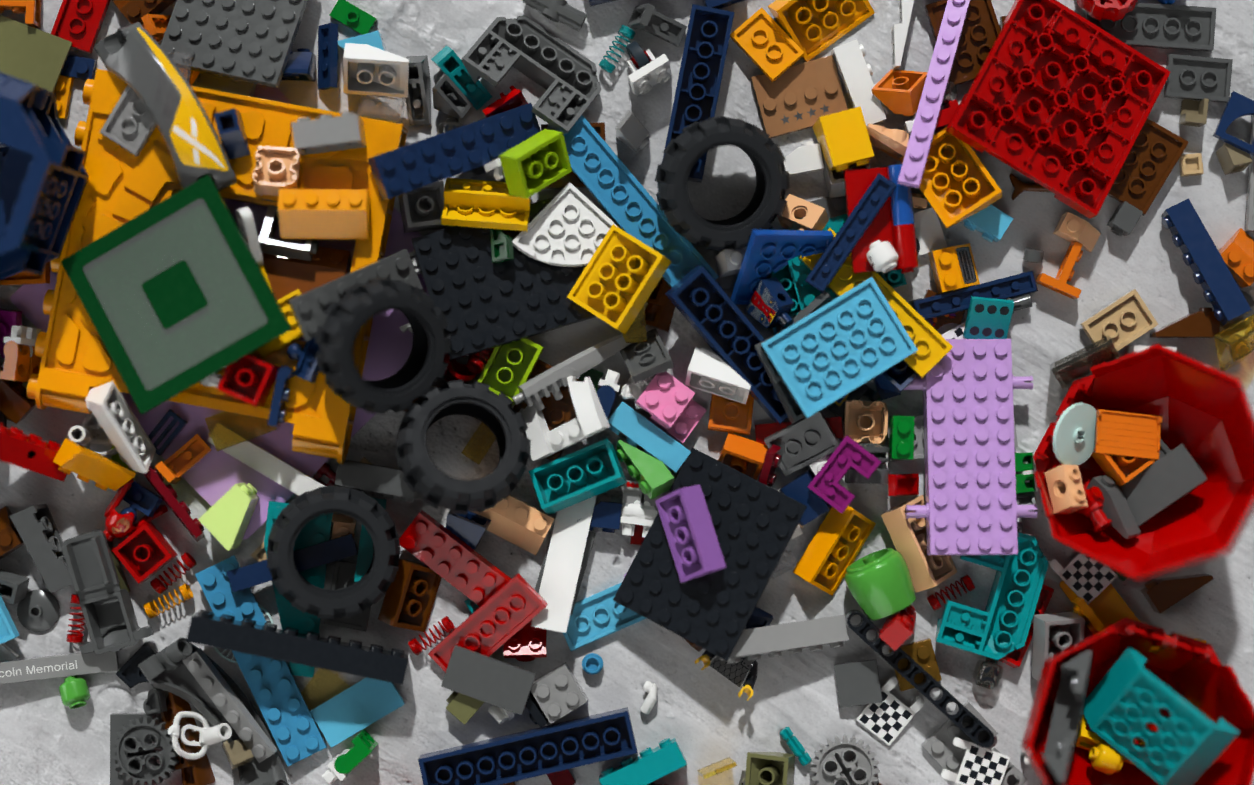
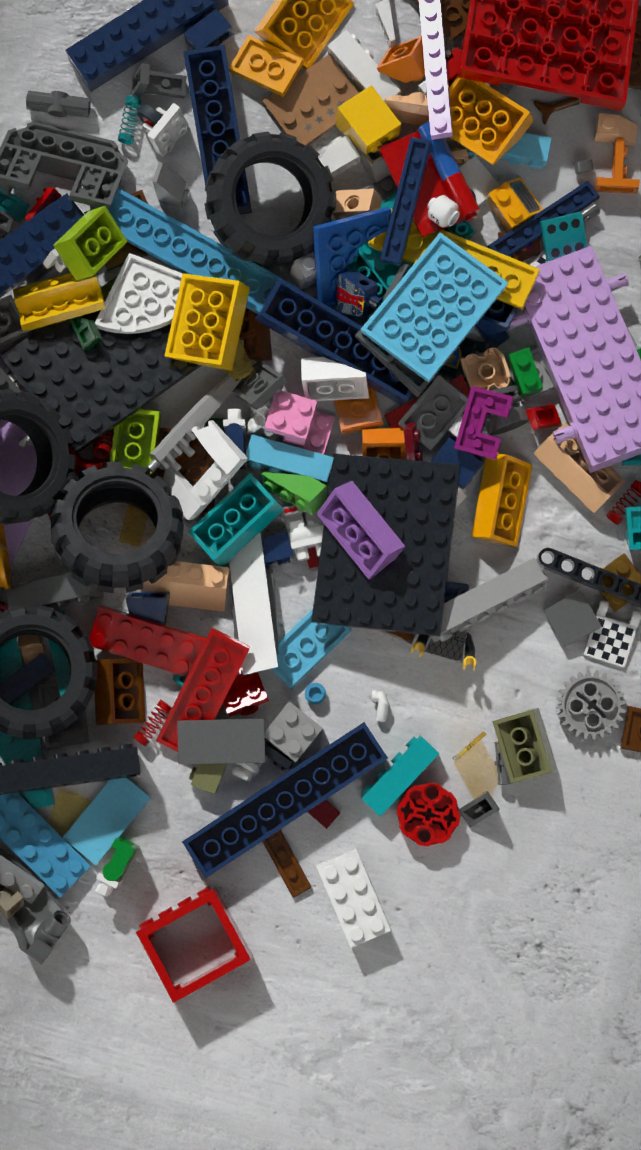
camera: 15 degrees left, 5 degrees down
(795, 746) = (536, 700): teal axle -> none
(880, 583) = (557, 514): bright green piece -> none
(898, 627) = (588, 546): red slope -> none

